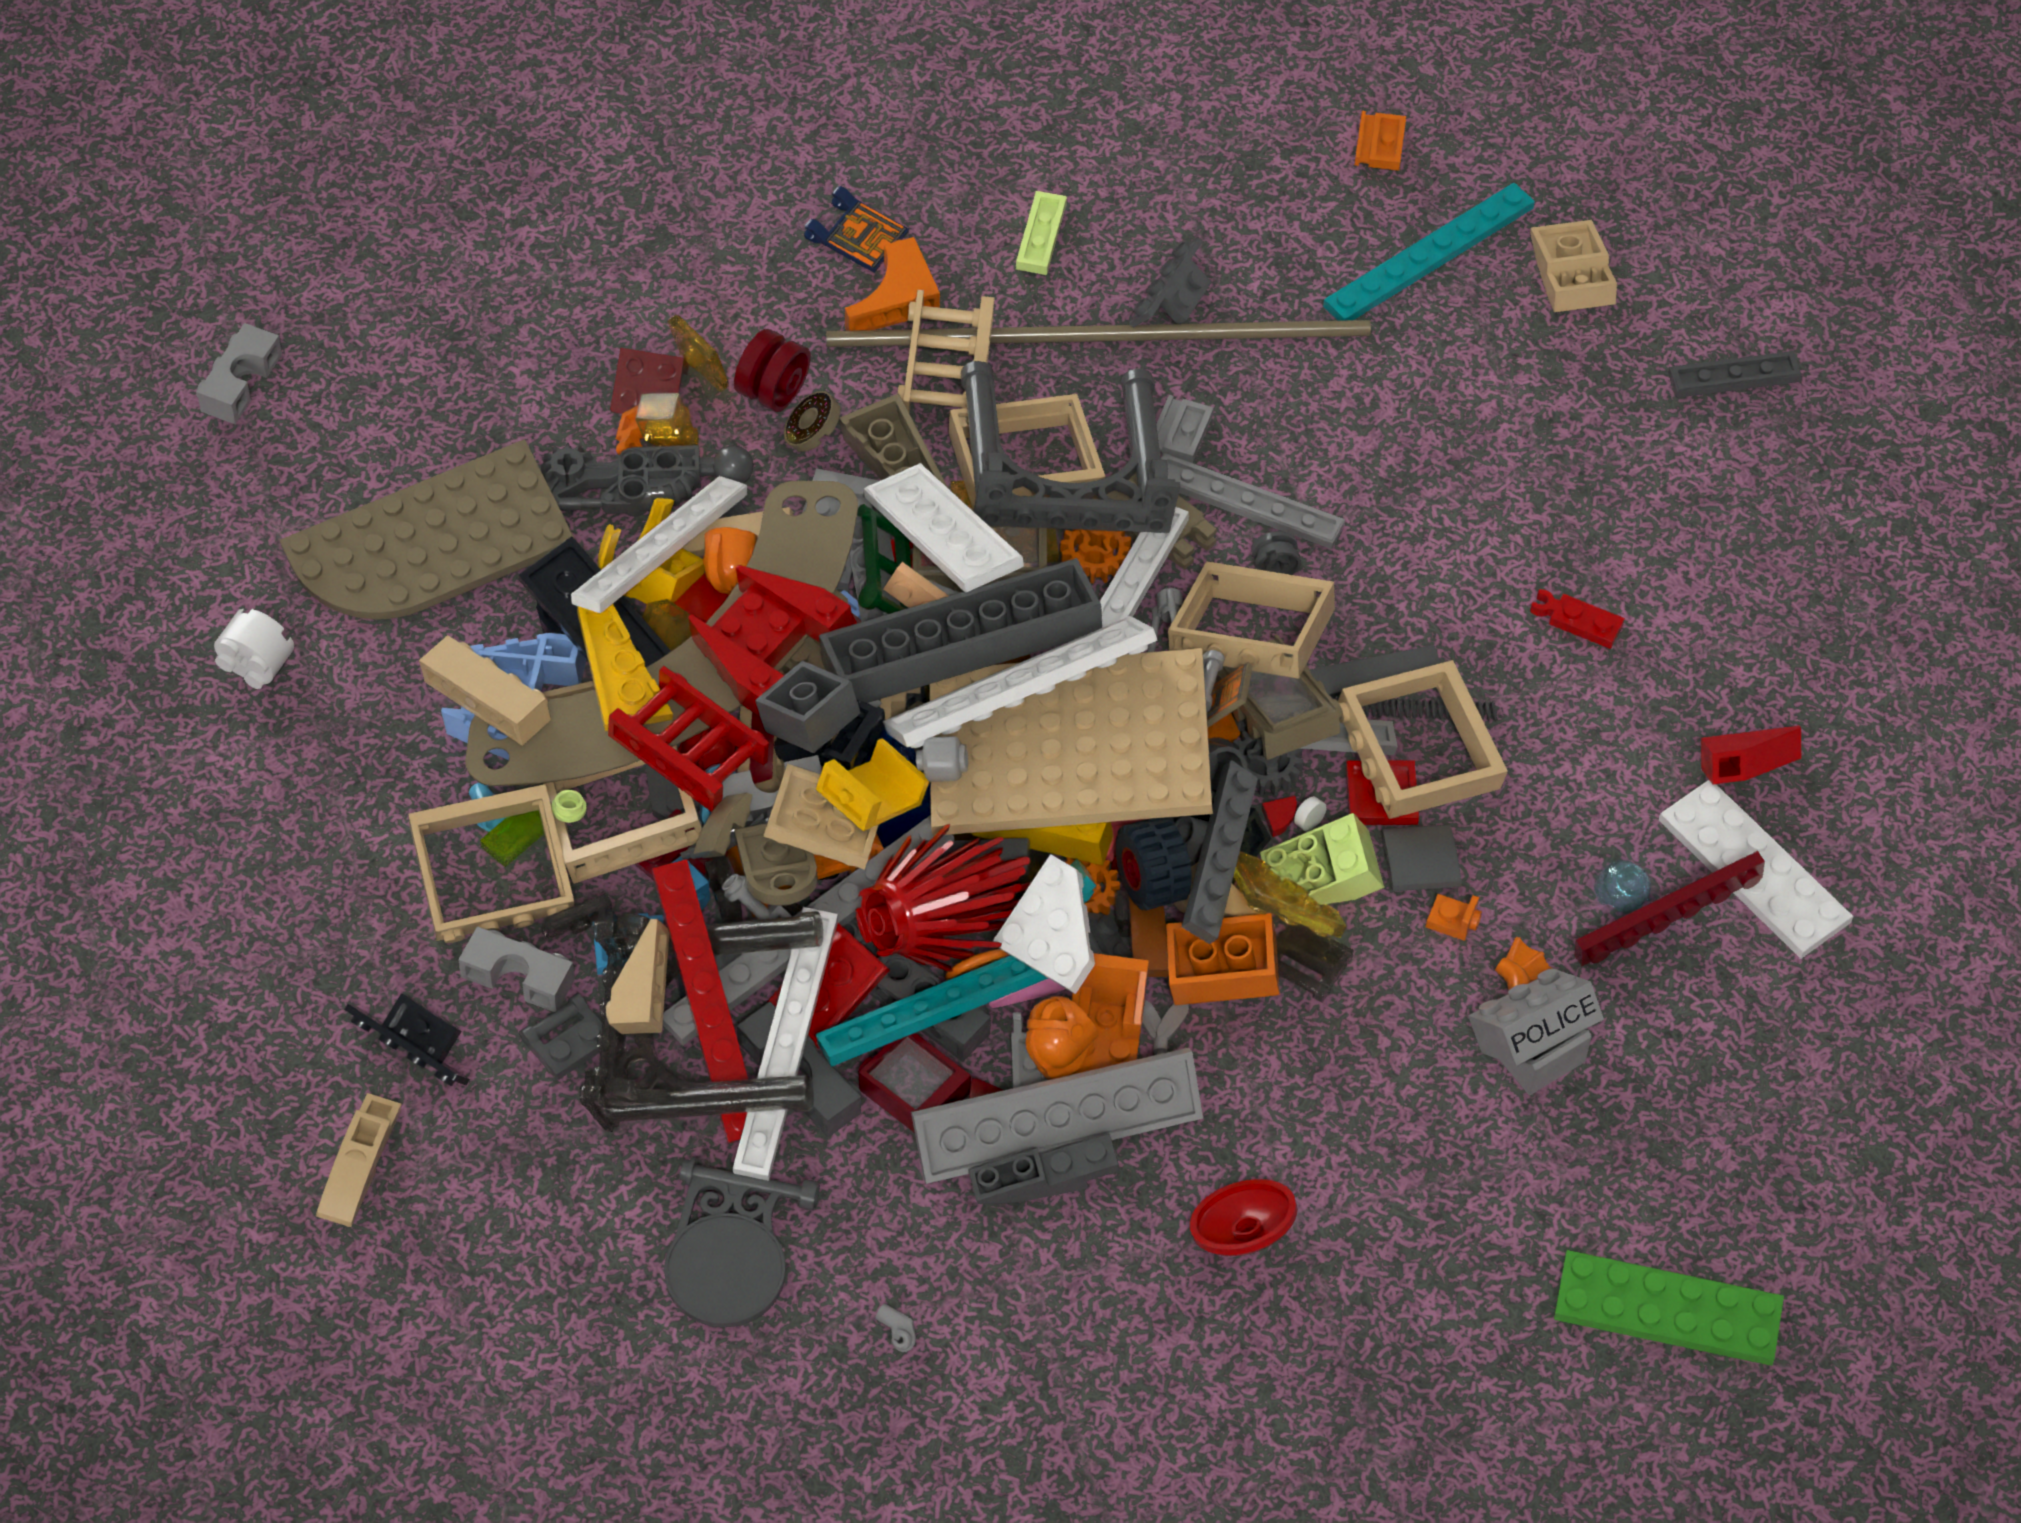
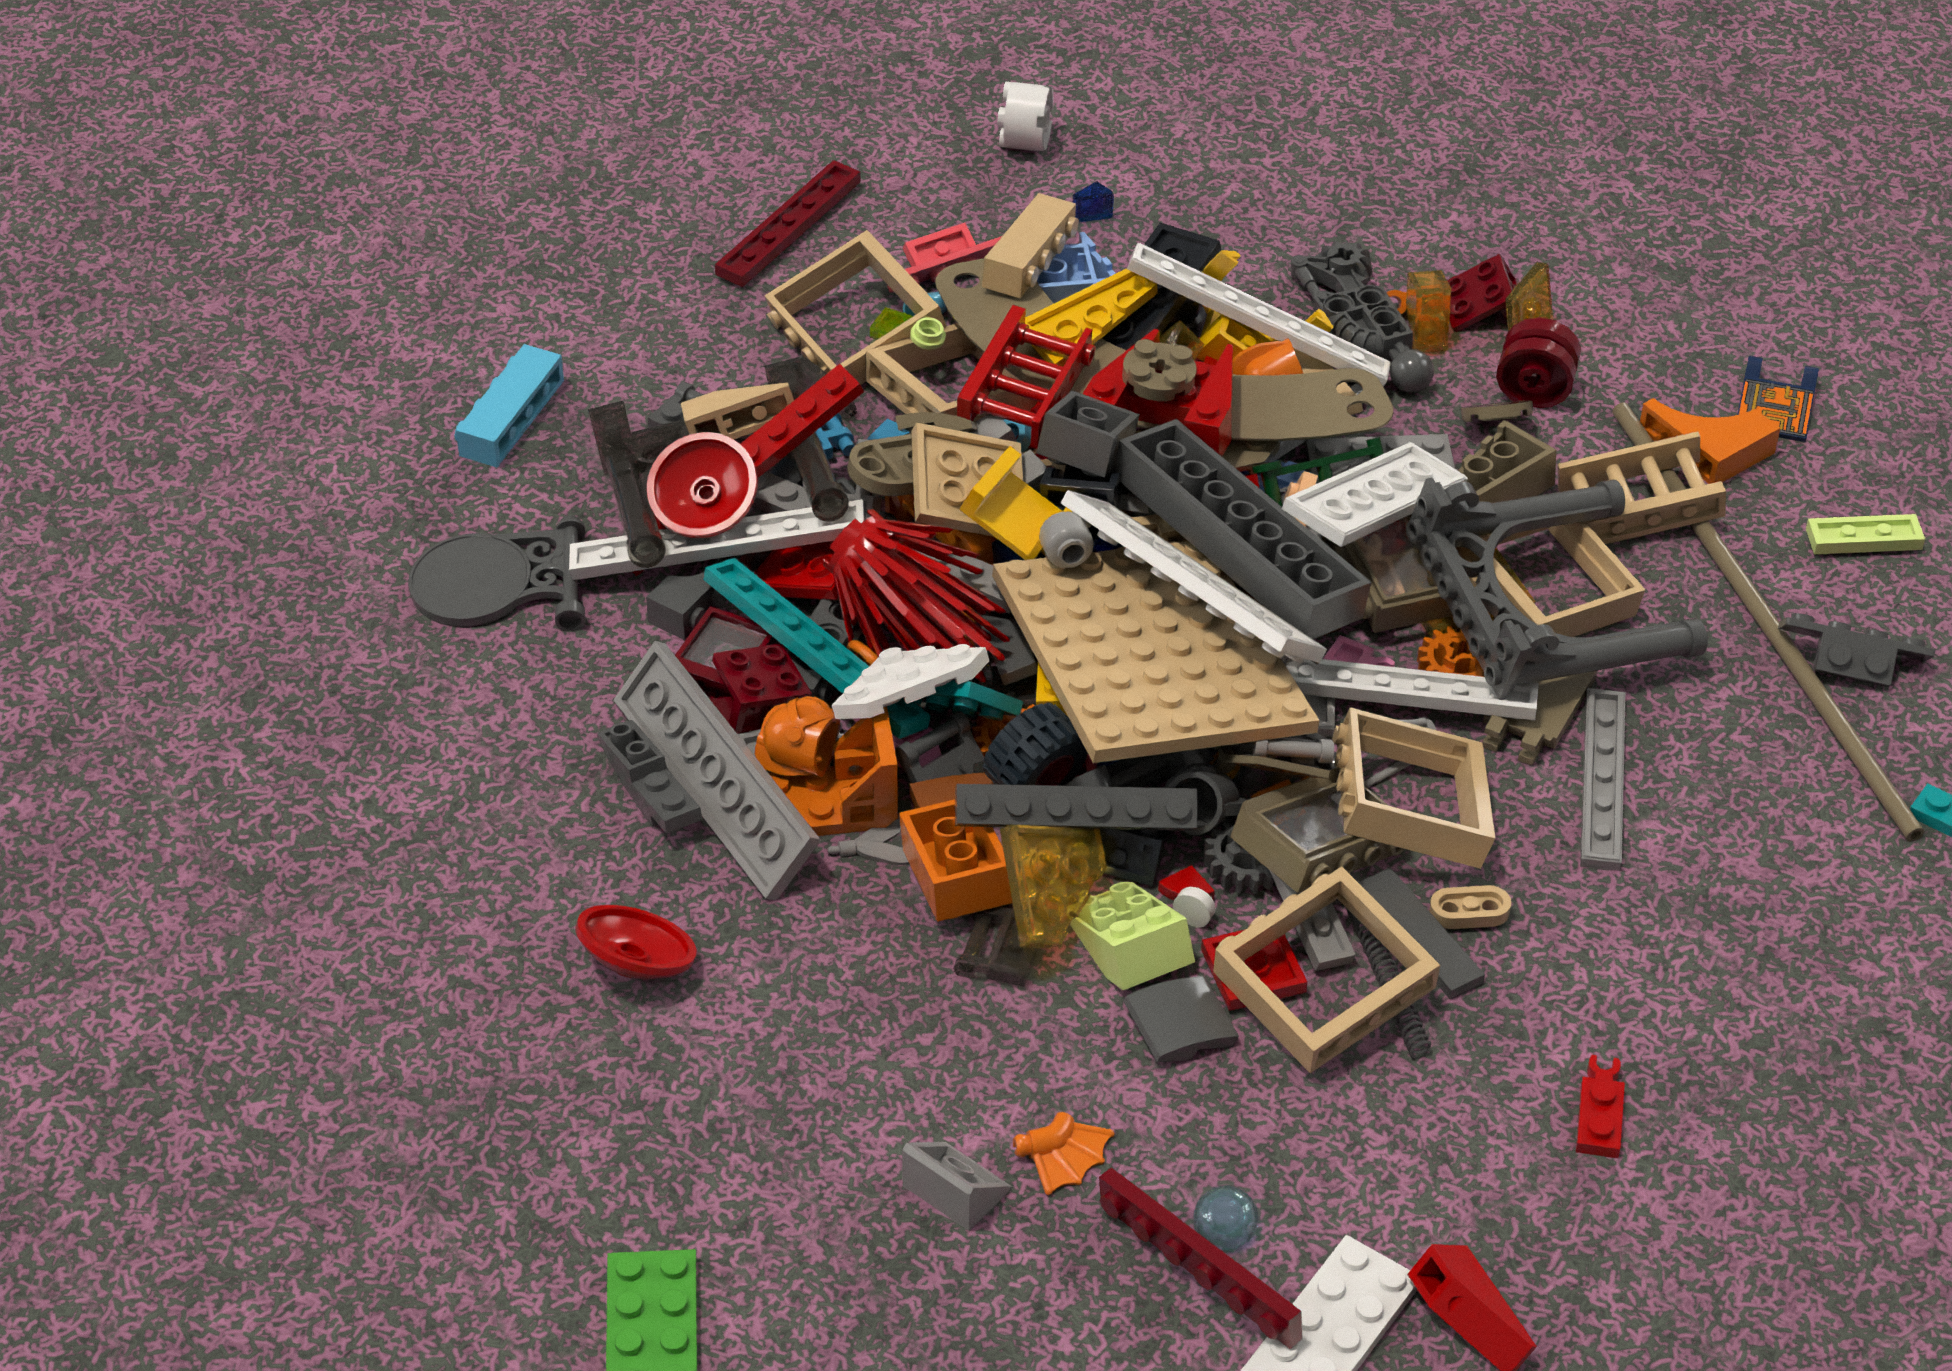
camera: 75 degrees right, 10 degrees down
(247, 353) = (1358, 42): light grey arch -> none
(311, 891) = (787, 223): none -> dark red plate
(358, 1159) = (504, 306): tan slope -> none
(392, 633) = (1094, 203): none -> clear blue slope
(417, 1031) = (652, 318): black bracket -> none
(419, 768) = (941, 249): none -> coral bracket
(431, 538) = (1202, 187): dark tan plate -> none
(493, 955) = (755, 344): light grey arch -> none
(496, 1186) = (509, 405): none -> medium azure brick
(756, 611) = (1174, 362): none -> dark tan plate
(760, 1014) = (691, 469): none -> red dish
(901, 1326) = (443, 716): light grey arm -> none
(974, 1050) = (758, 682): none -> dark red bracket
(1182, 427) = (1665, 698): light grey plate -> none
(1276, 553) = (1529, 805): dark grey wheel -> none
(1360, 633) = (1467, 906): none -> tan plate
(1454, 916) = (1114, 1065): orange bracket -> none
(1535, 1016) = (985, 1144): light grey brick -> none

